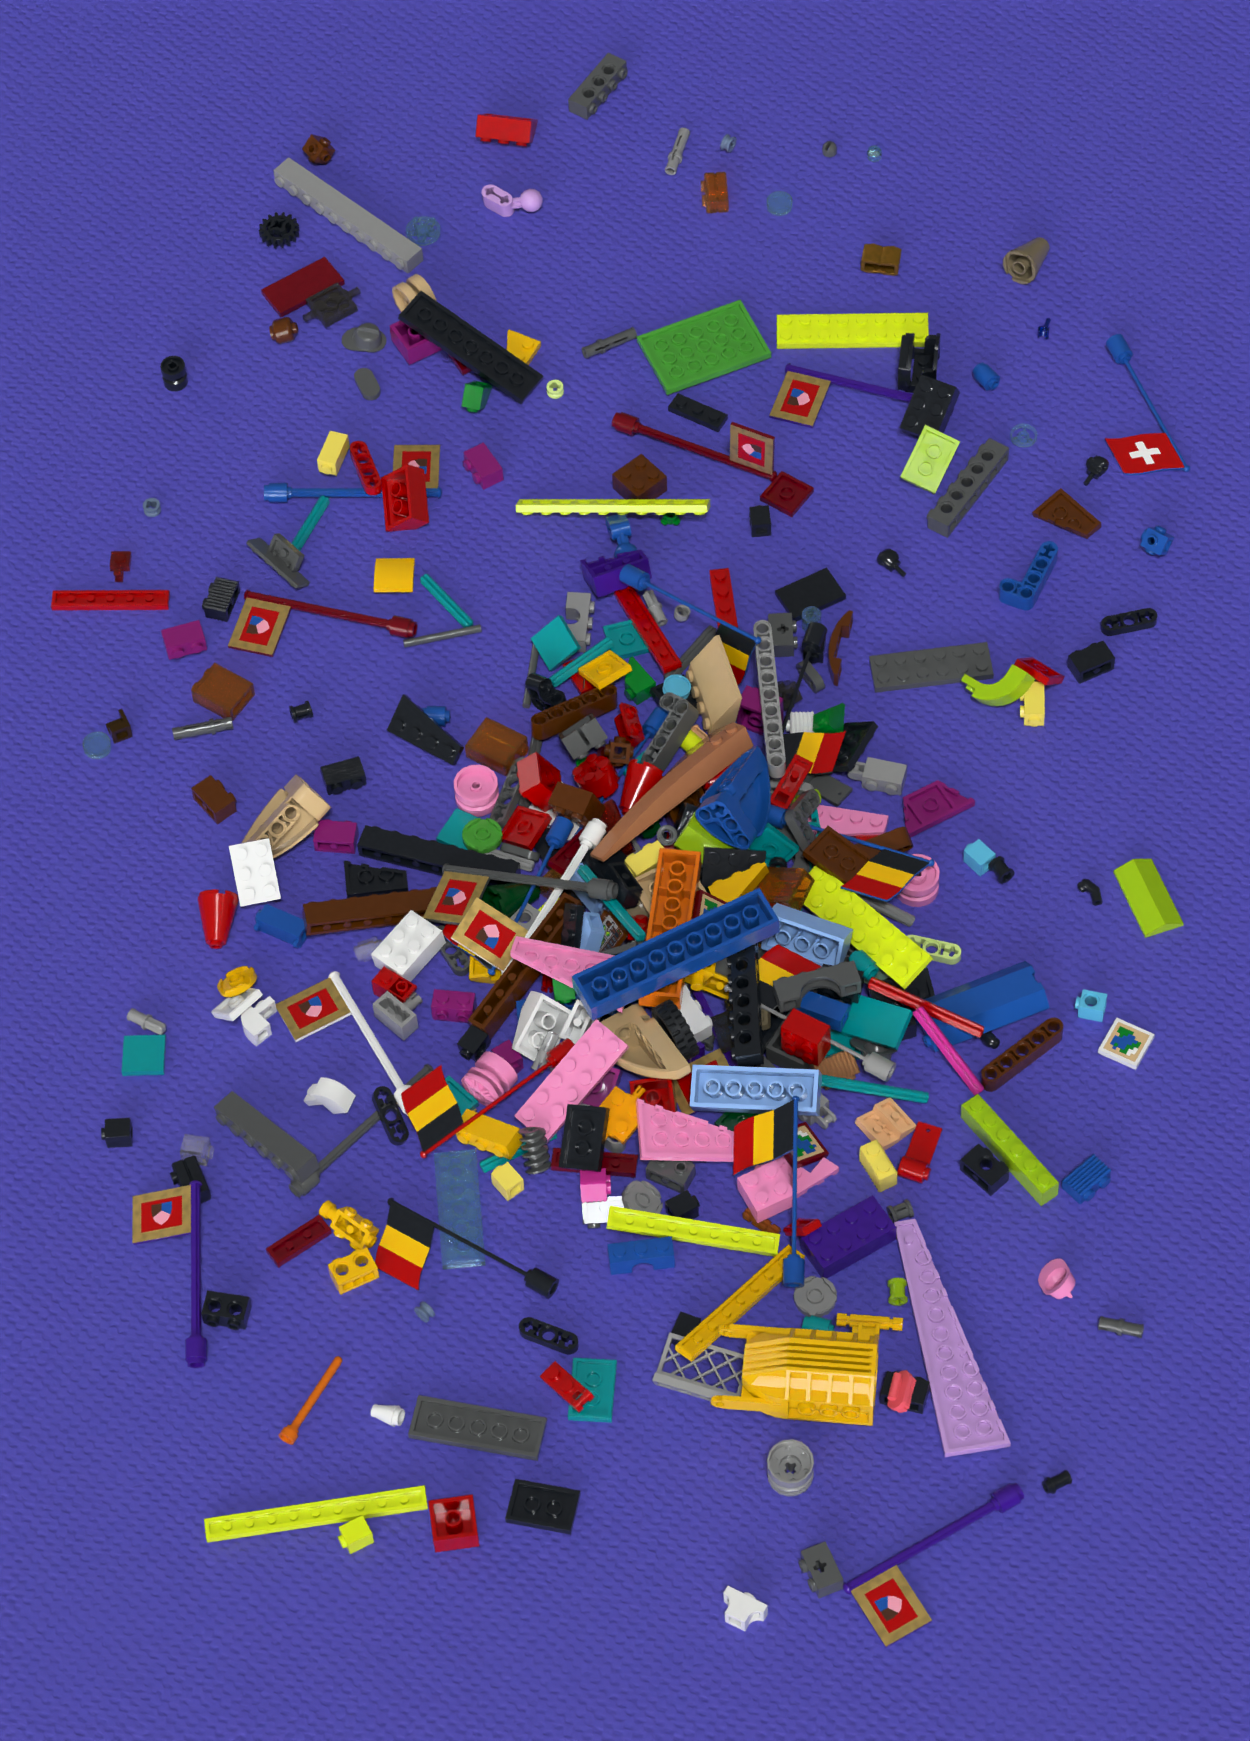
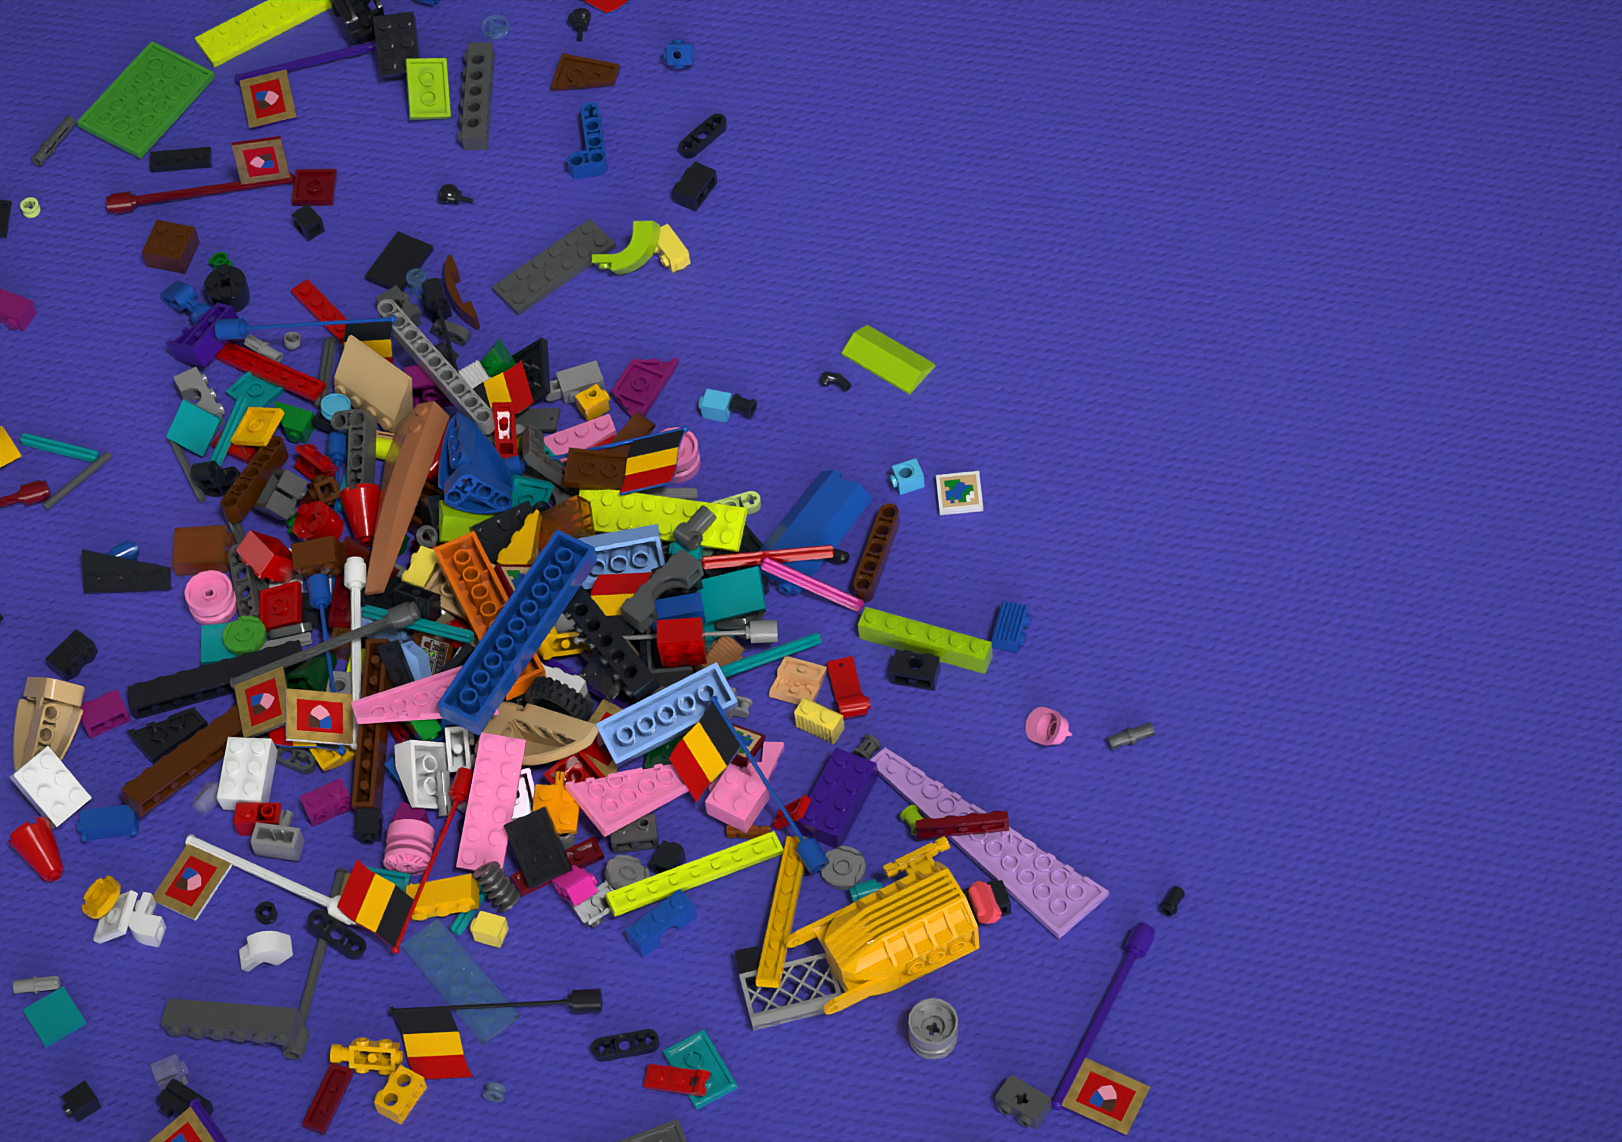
camera: 30 degrees left, 0 degrees up
(357, 1067) = (262, 918): none -> black bush
(621, 506) = (155, 283): neon yellow plate -> none
(659, 542) = (228, 287): none -> black brick
(873, 951) = (691, 533): none -> dark grey piece
(881, 799) = (592, 402): none -> yellow brick
(923, 1315) = (962, 825): none -> dark red plate
(1039, 671) = (659, 217): red tile -> none

